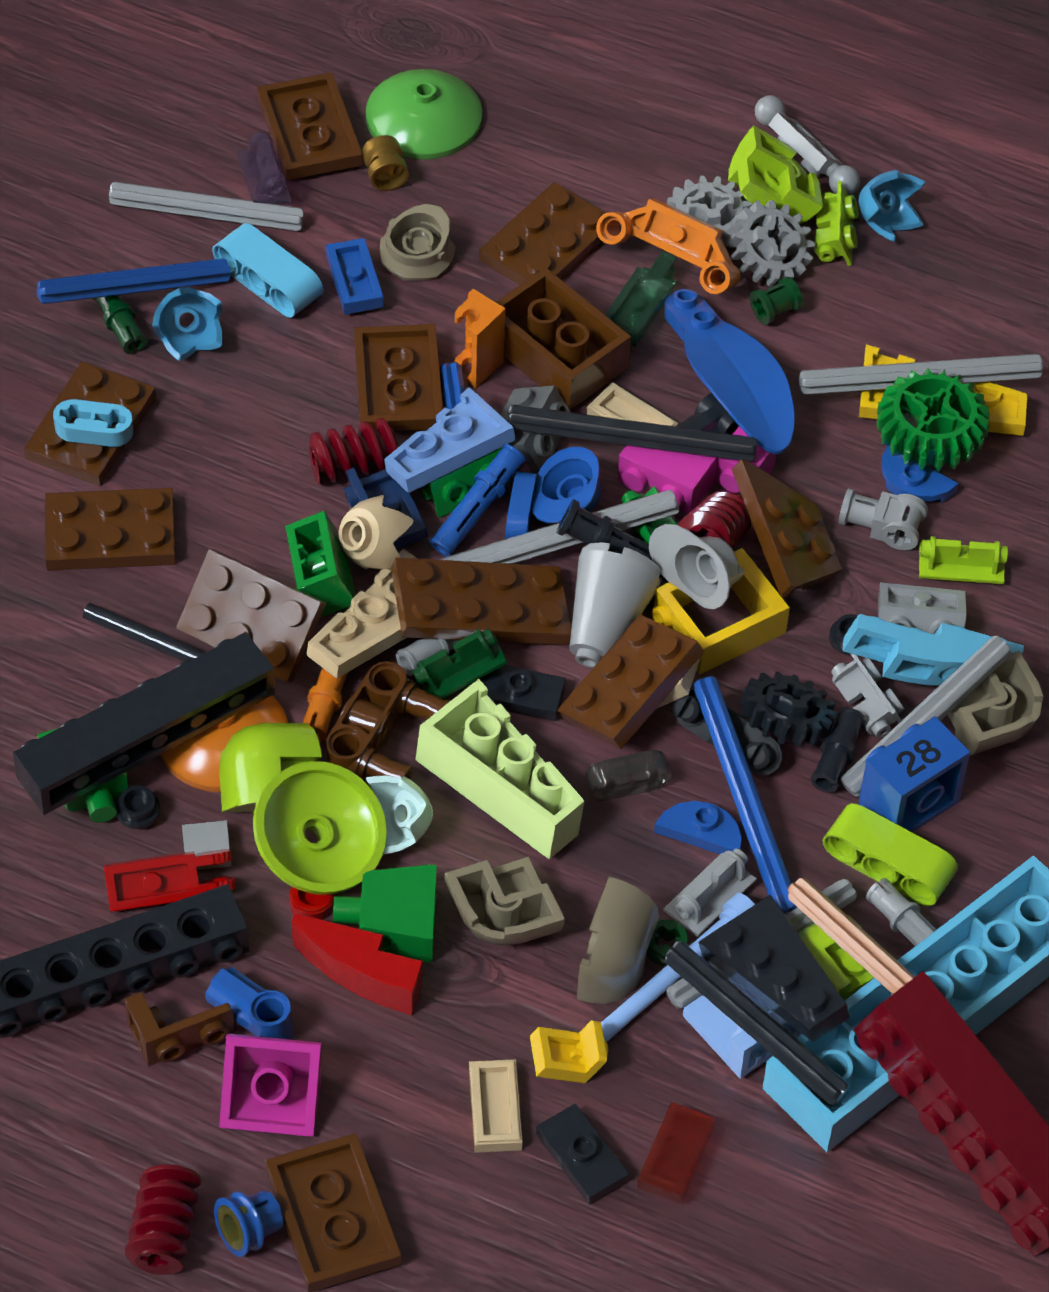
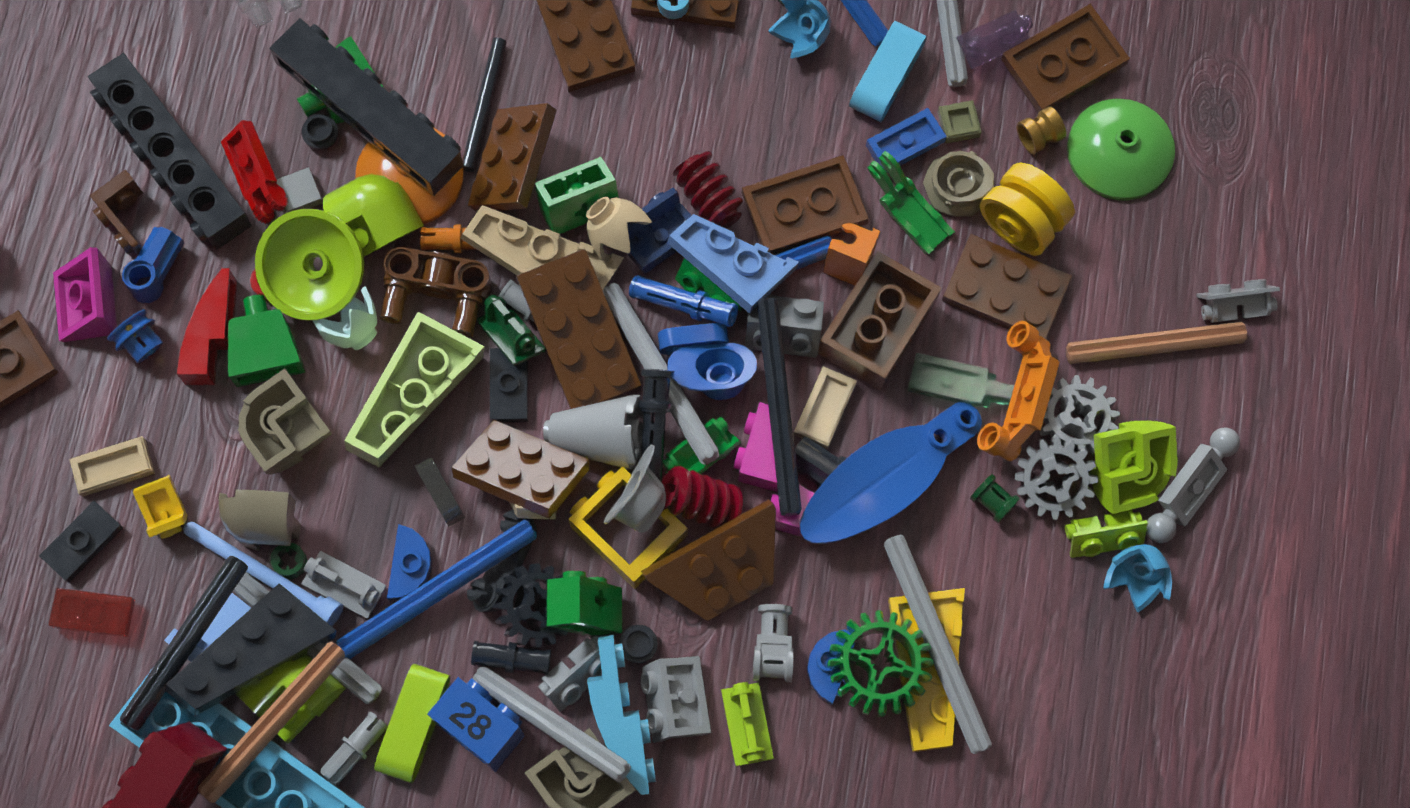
camera: 75 degrees right, 20 degrees up
(342, 1038) = (128, 332): none -> blue piece
(344, 227) = (959, 121): none -> olive tile
(429, 293) = (908, 206): none -> green arm
(477, 184) = (1027, 208): none -> yellow wheel
(625, 59) = (1253, 298): none -> light grey hinge
(646, 137) = (1156, 342): none -> nougat axle
(804, 652) = (584, 605): none -> green brick

